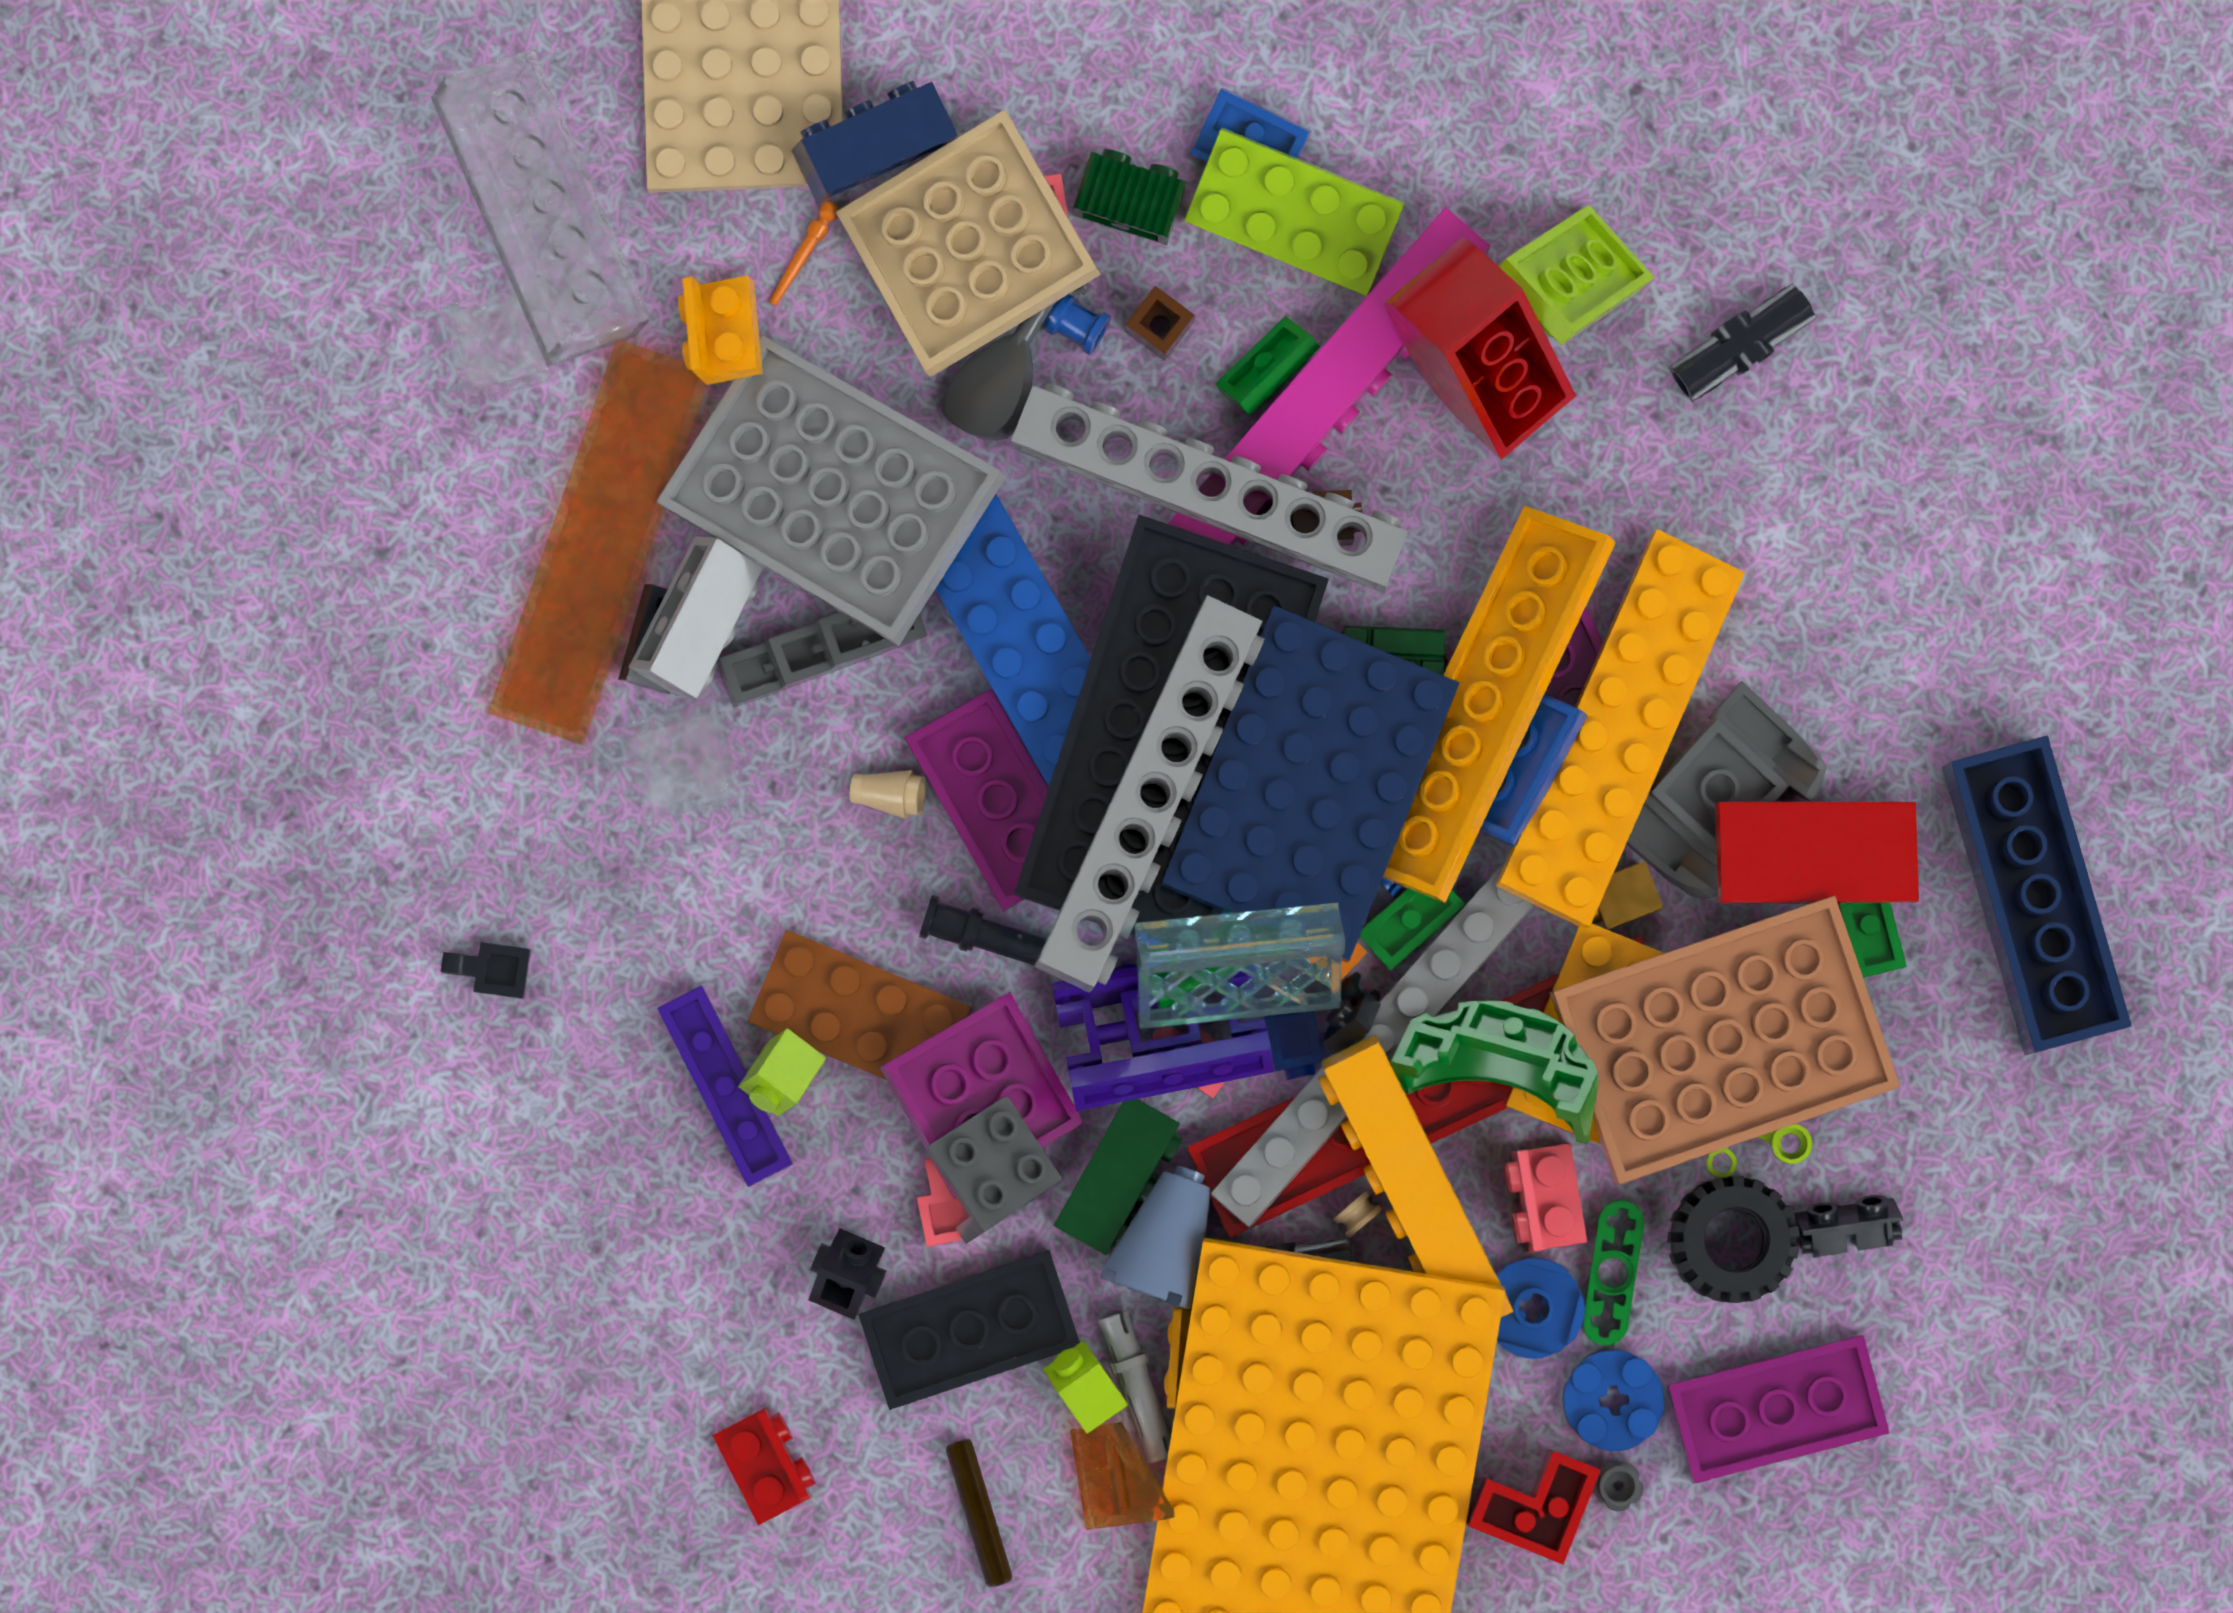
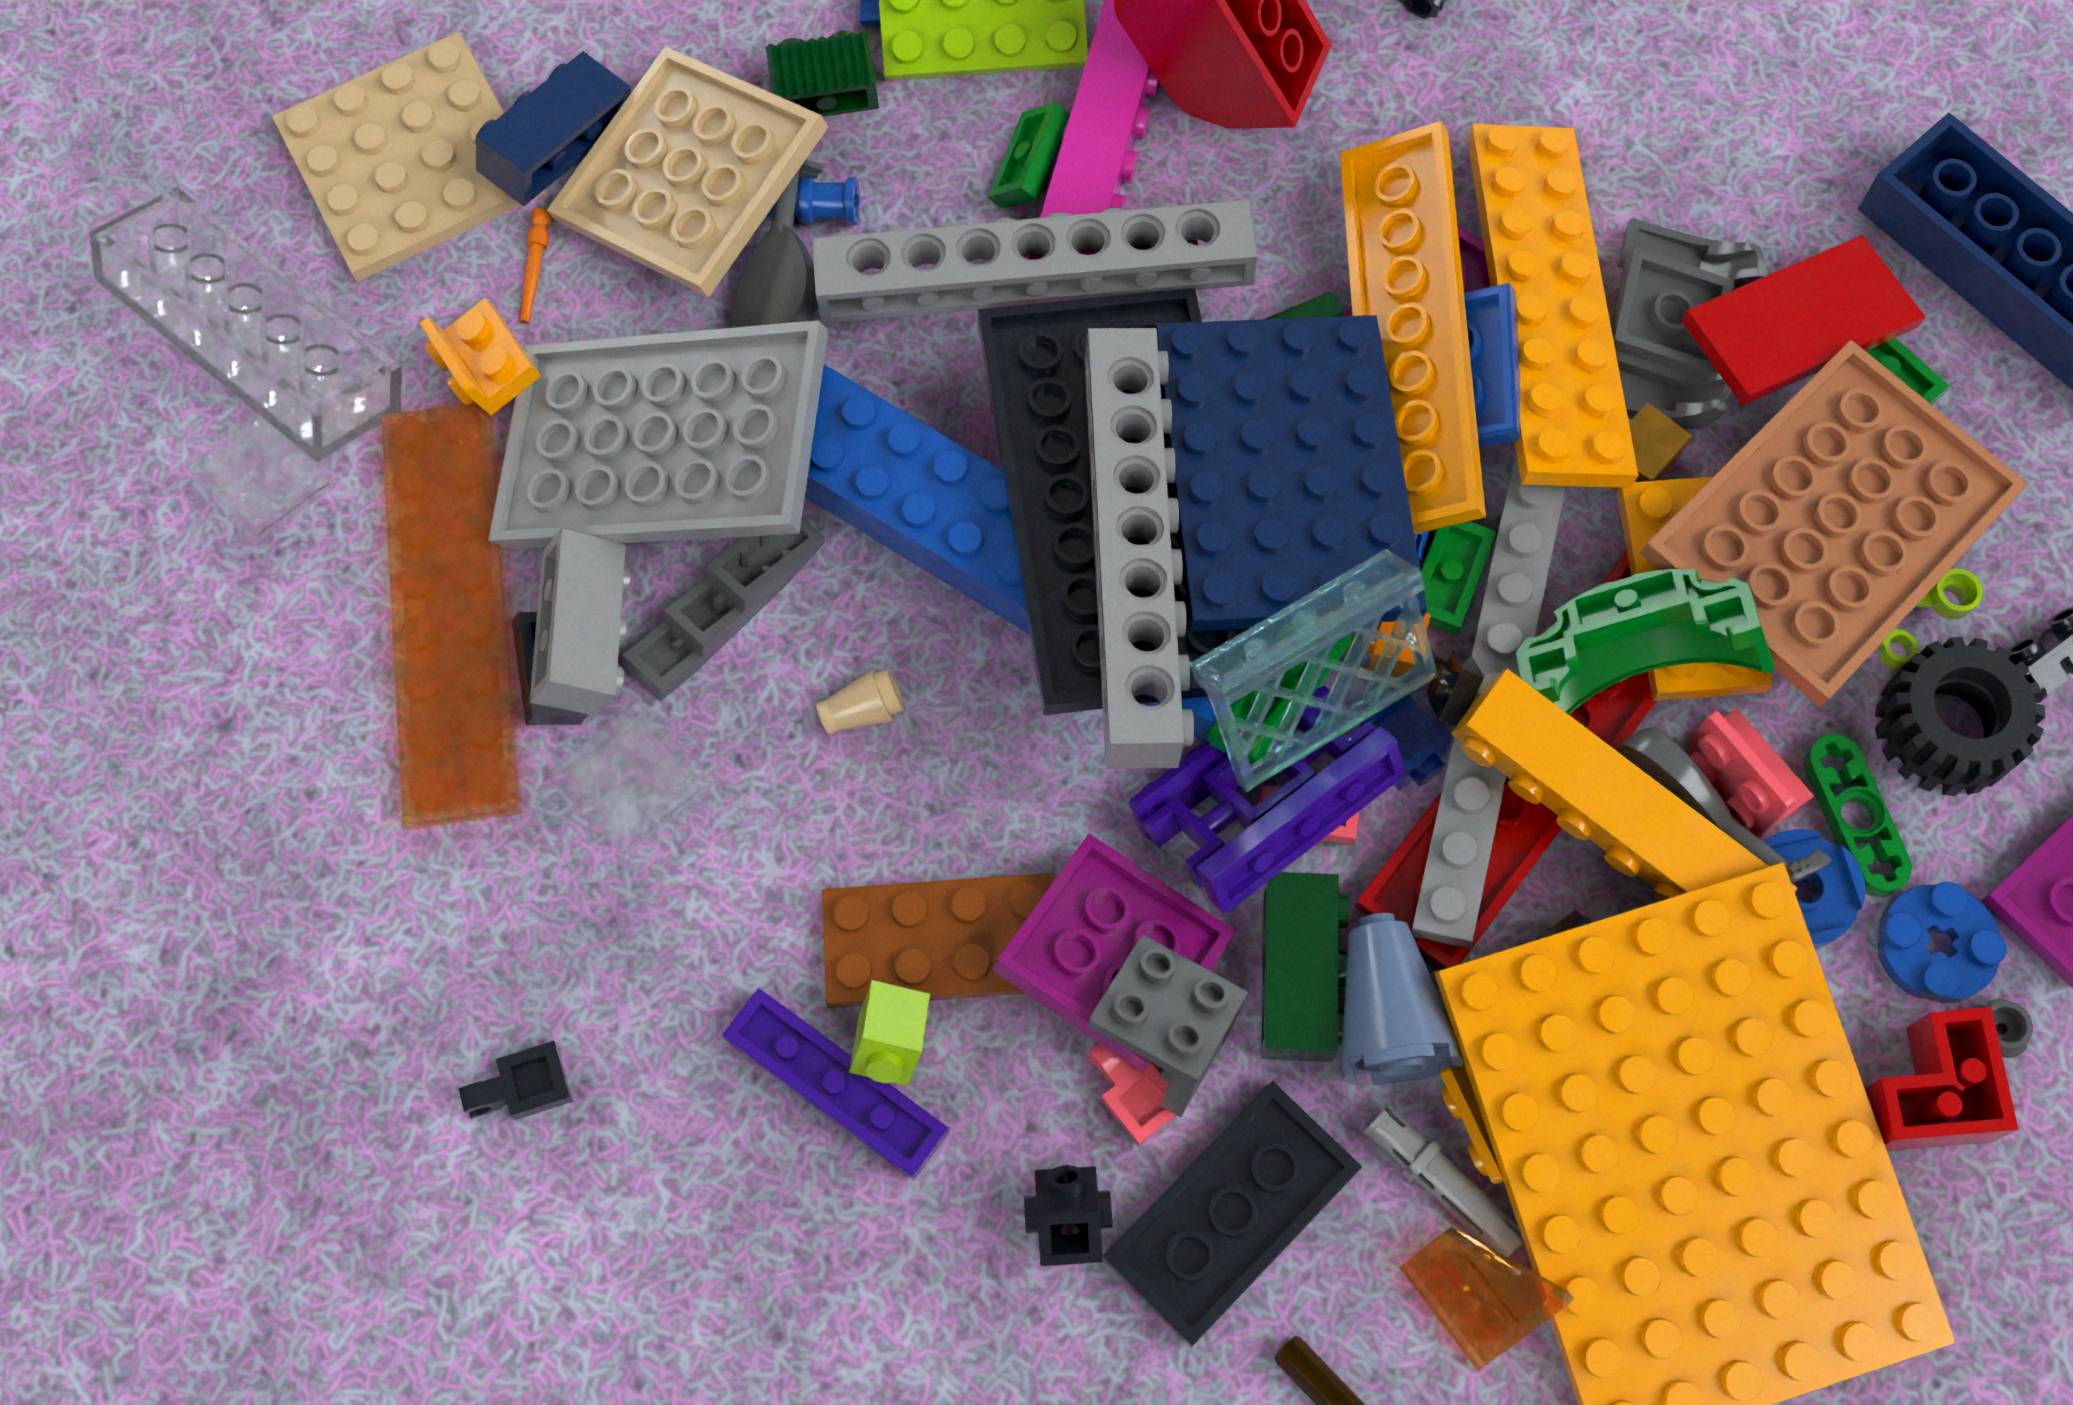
camera: 25 degrees left, 15 degrees down
(971, 930) = (1017, 795): black pin -> none
(984, 787) = (962, 656): magenta plate -> none
(1085, 1386) = (1392, 1207): lime brick -> none
(1155, 306) = (907, 163): reddish brown plate -> none
(1357, 1214) = (1569, 883): tan bush -> none
(1475, 1167) = (1670, 765): none -> dark grey piece

